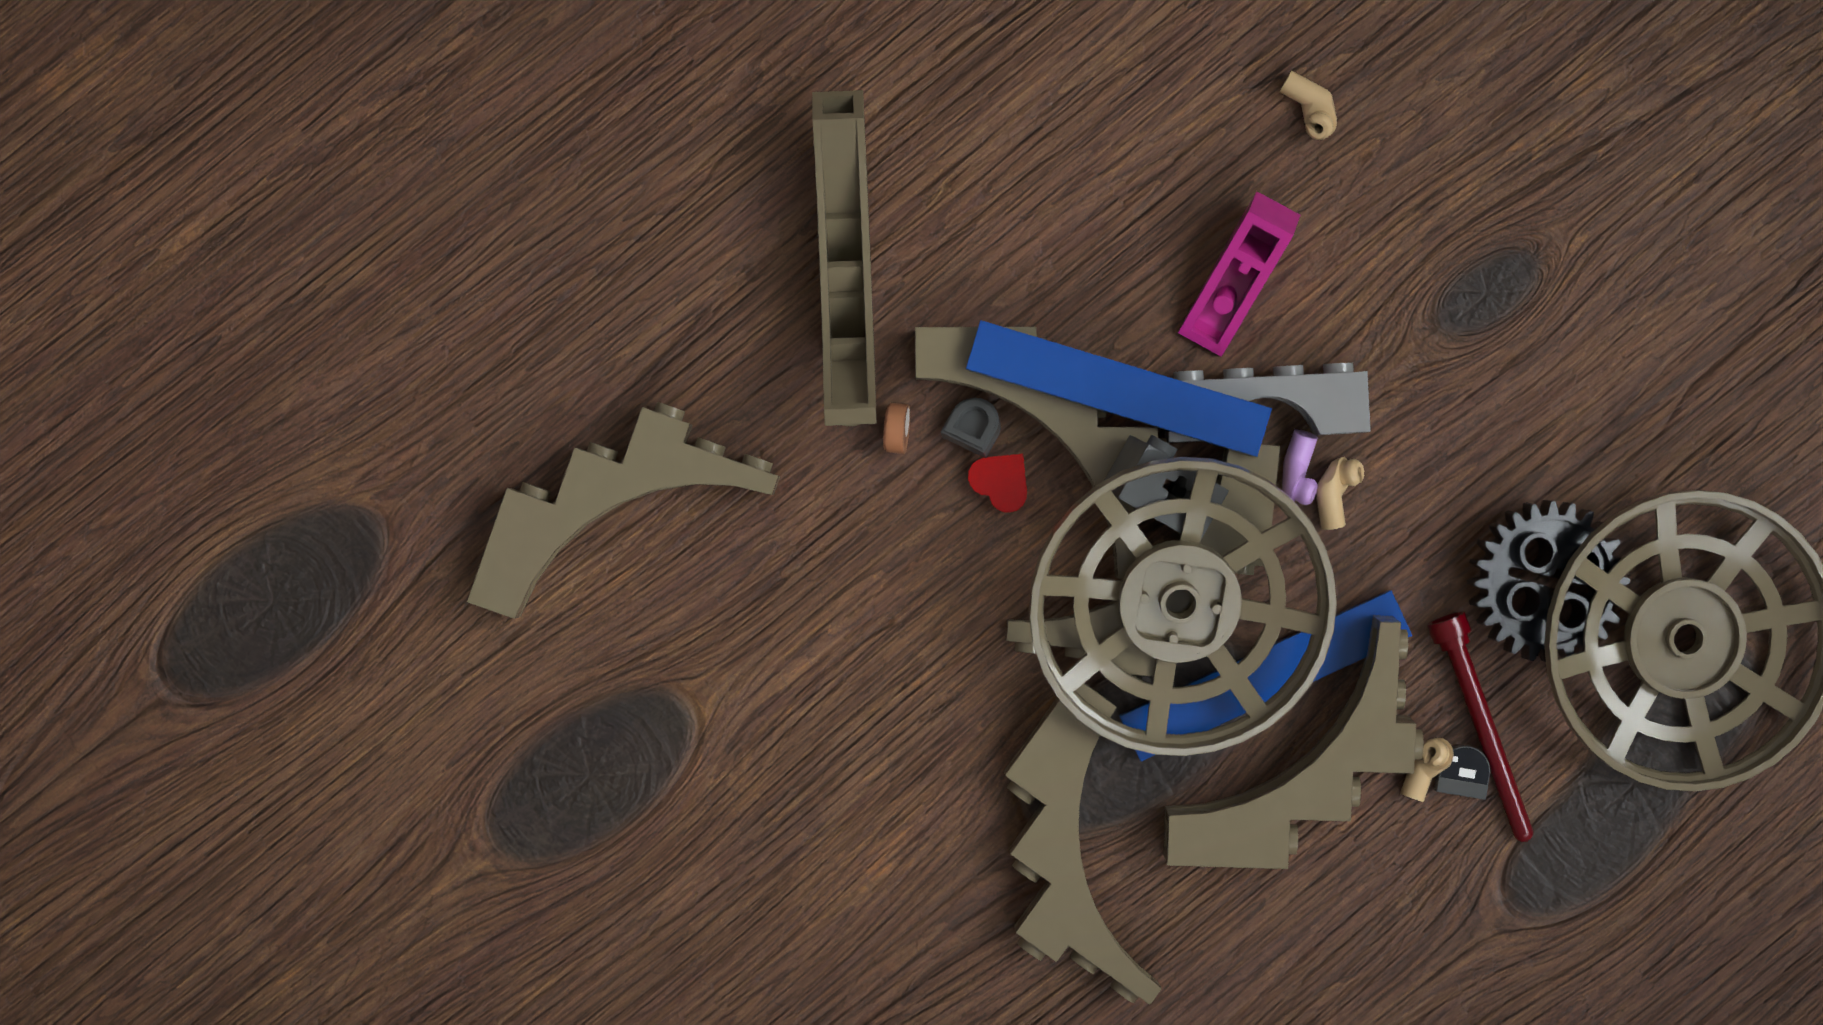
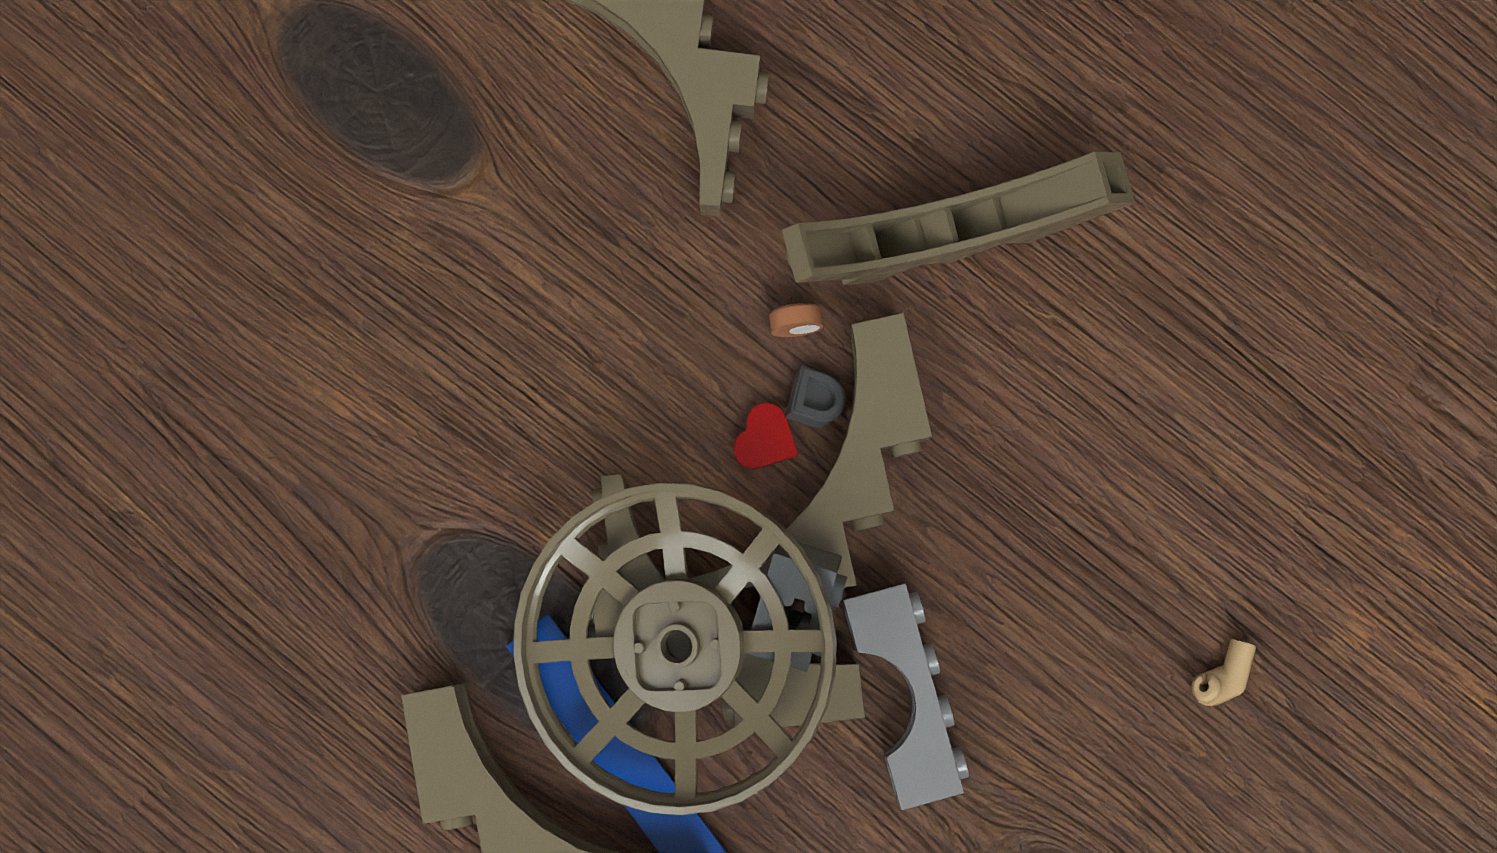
camera: 75 degrees right, 5 degrees down
(1063, 912) = (394, 570): dark tan arch -> none
(1118, 388) = (887, 535): blue tile -> none
(1240, 273) = (1034, 637): dark pink slope -> none
(1296, 466) = (847, 741): lavender arm -> none
(1332, 486) = (831, 783): tan arm -> none

